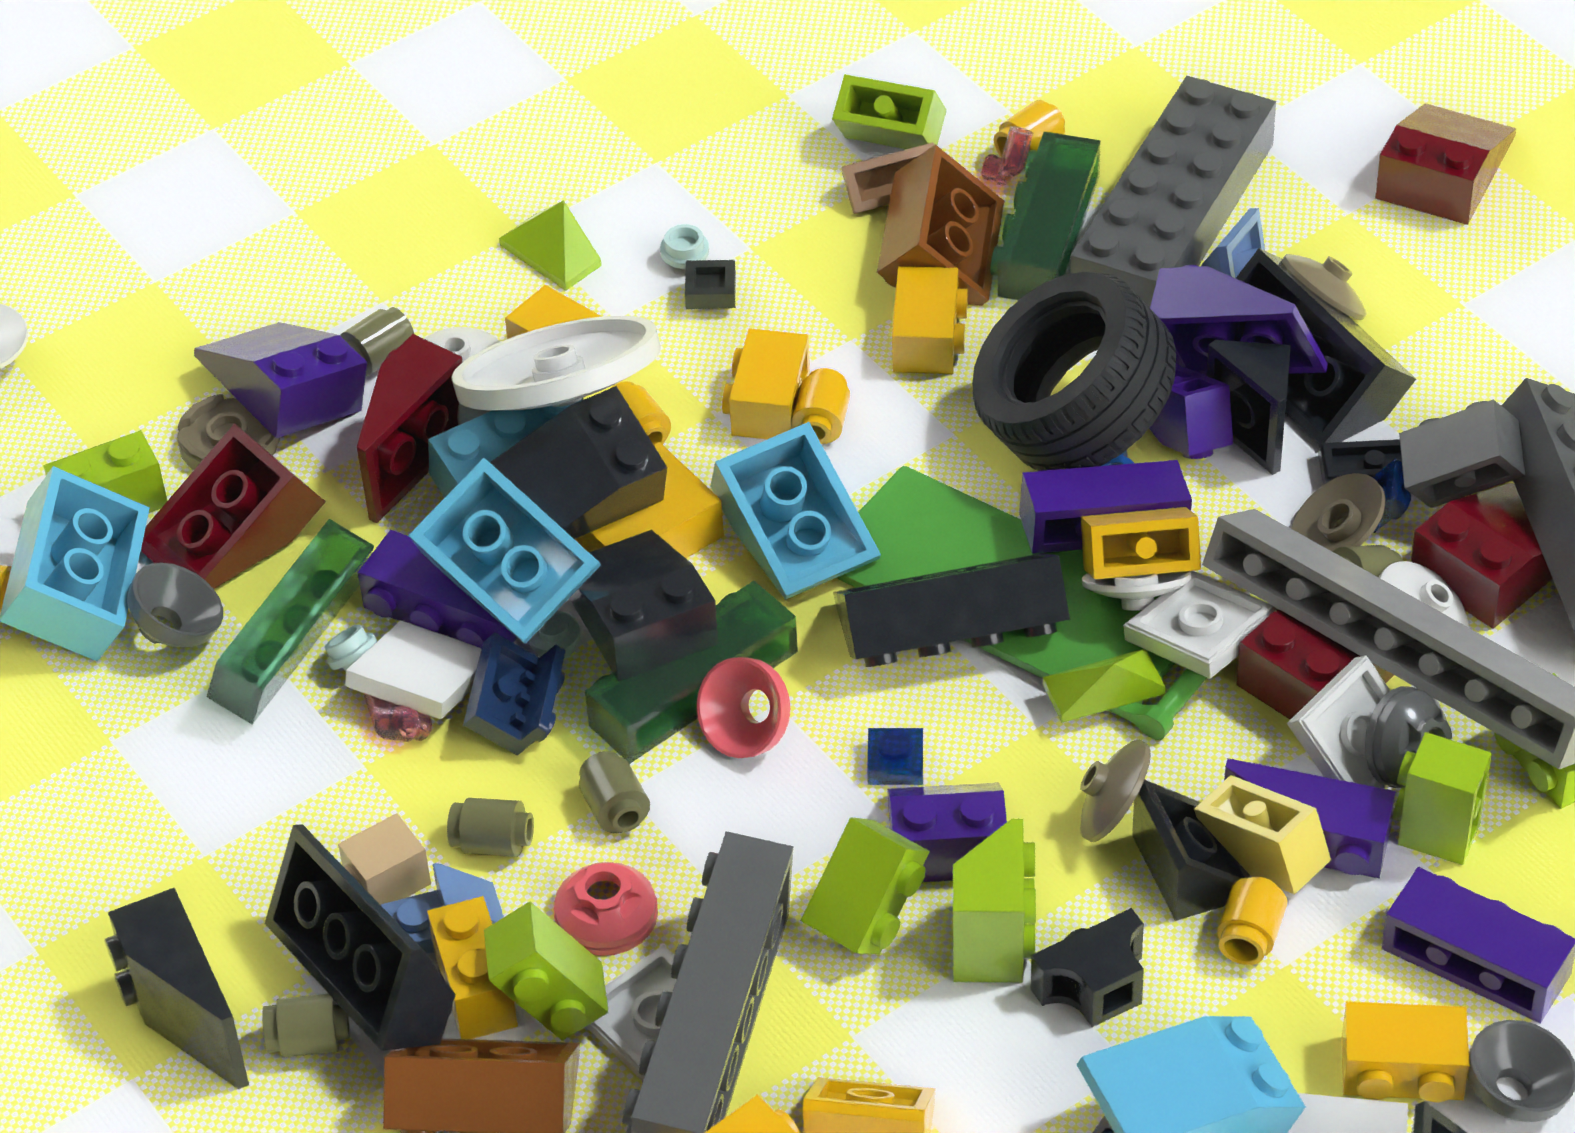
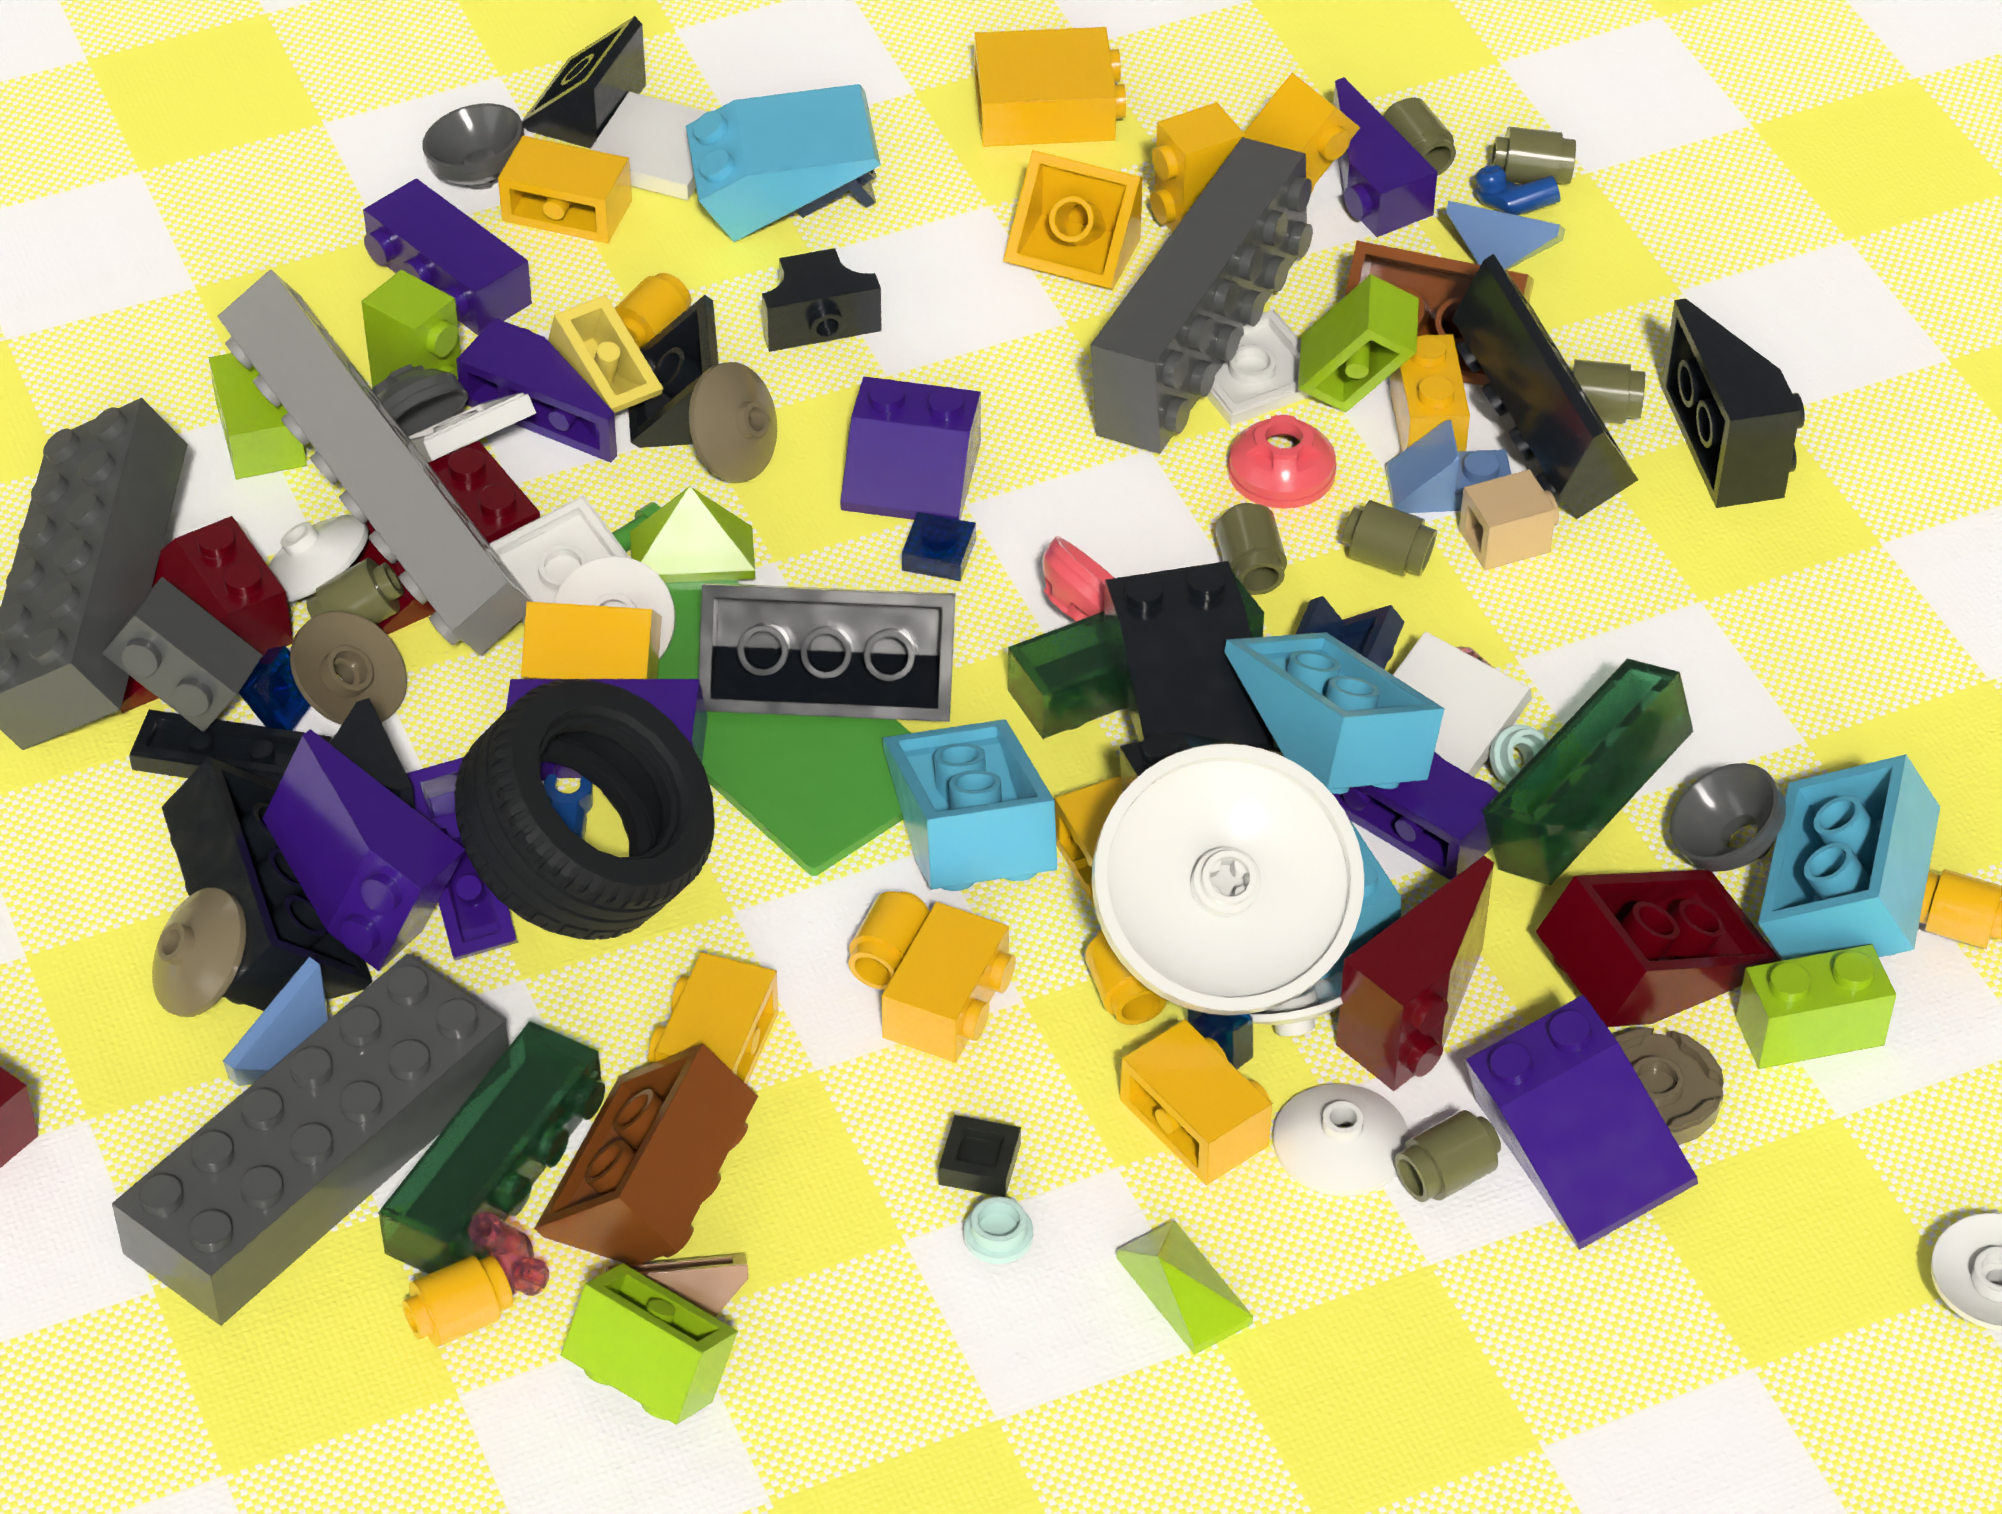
camera: 170 degrees left, 0 degrees up
(866, 886) = (1020, 370): lime brick -> none
(994, 908) = (902, 322): lime slope -> none

